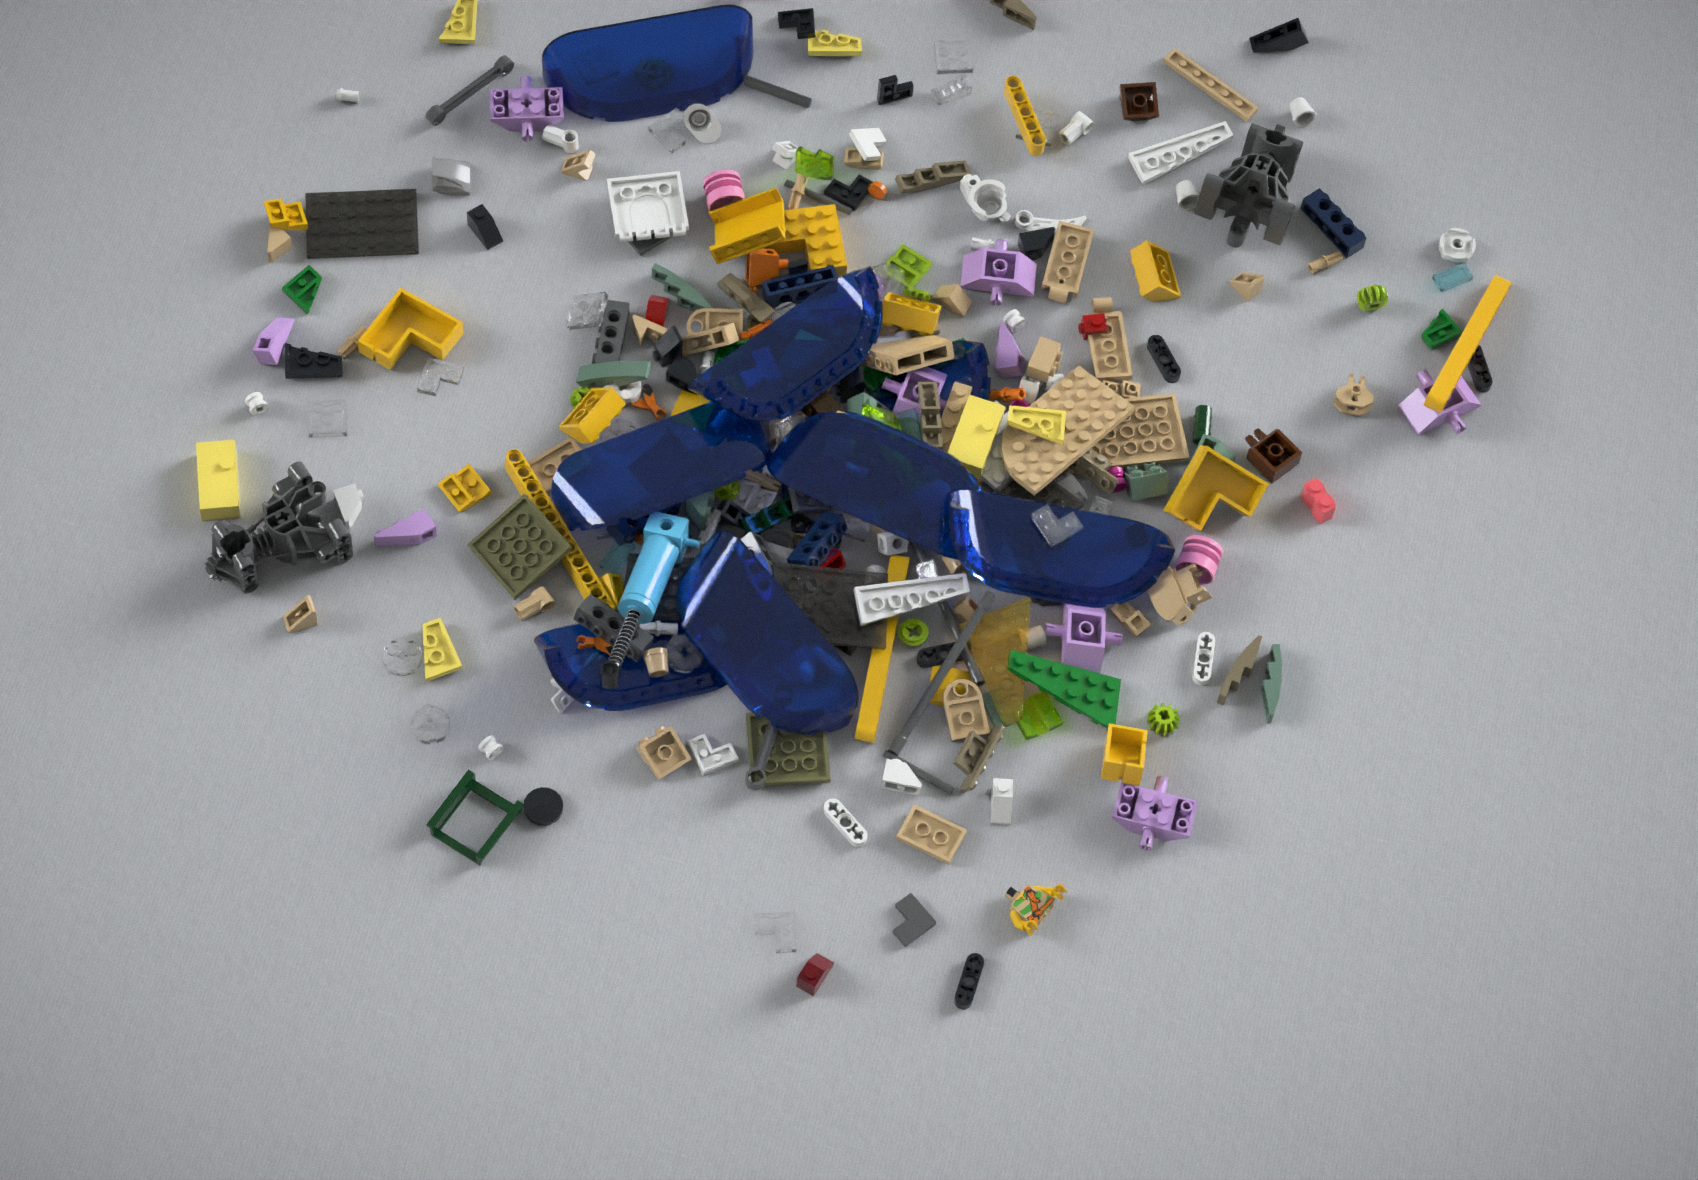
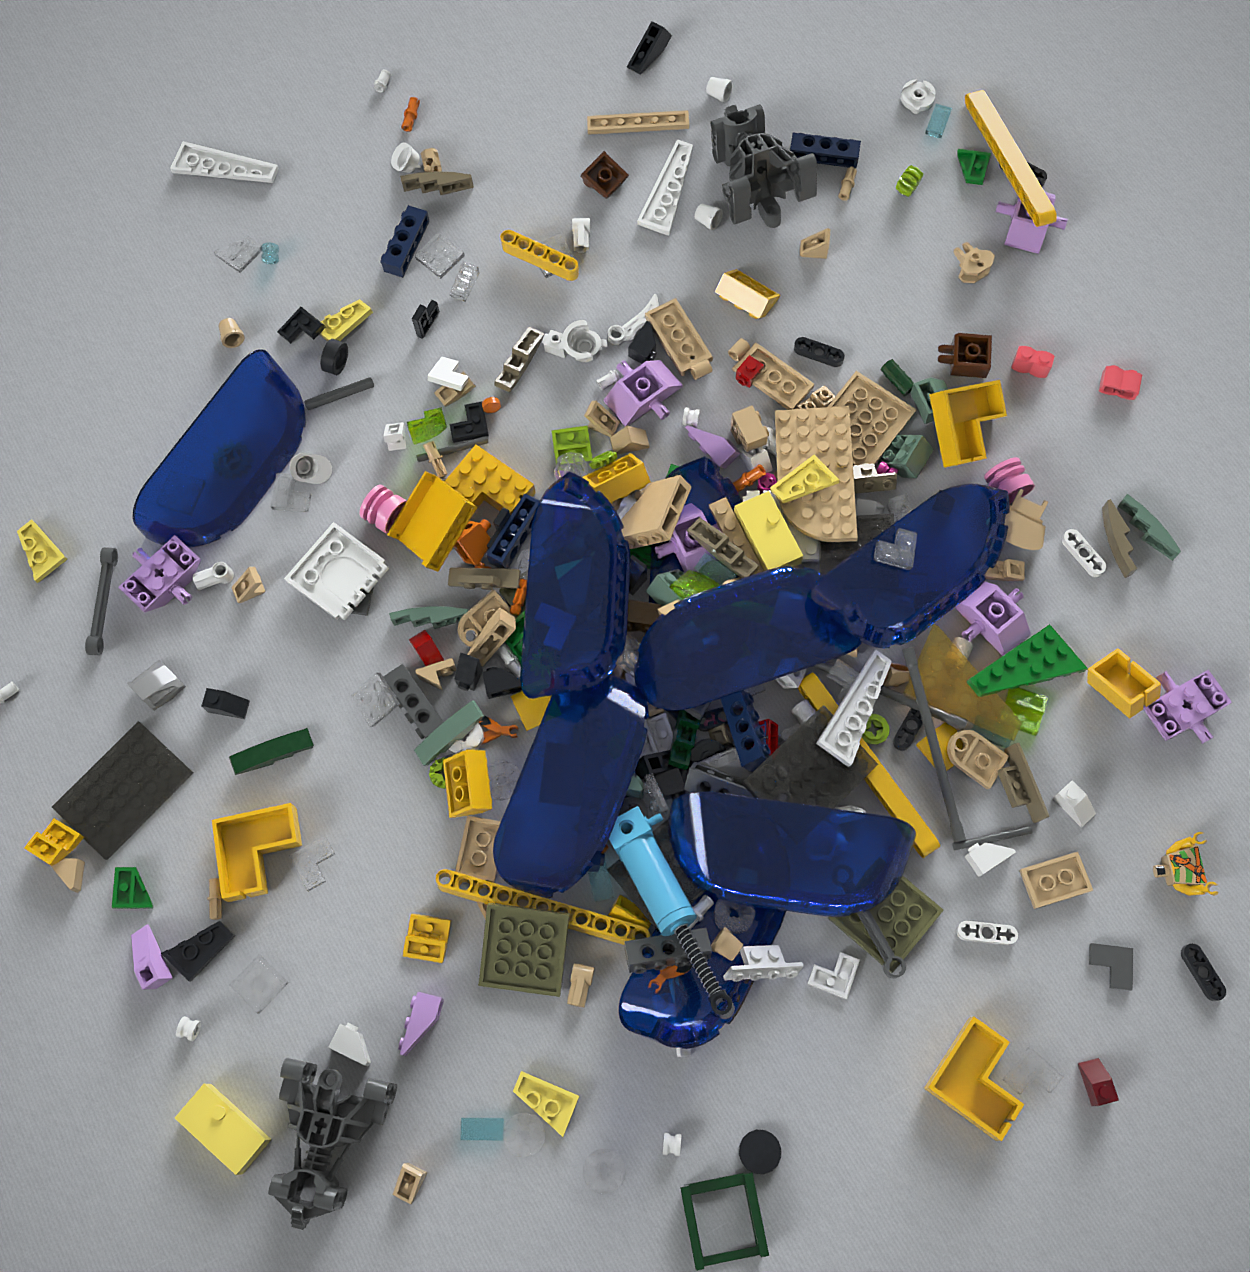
camera: 35 degrees left, 10 degrees up
(378, 630) = (482, 1129): none -> clear light blue tile
(483, 282) = (271, 751): none -> dark green slope
(663, 752) = (802, 1012): tan plate -> none
(667, 694) = (762, 963): none -> white bracket
(728, 882) = (964, 1083): none -> yellow piece
(798, 54) = (334, 357): none -> black tyre
(938, 25) = (406, 249): none -> dark blue brick
(946, 266) = (601, 419): none -> tan slope
(1169, 724) = (1110, 627): lime gear -> none
(1370, 572) = (1120, 382): none -> coral brick

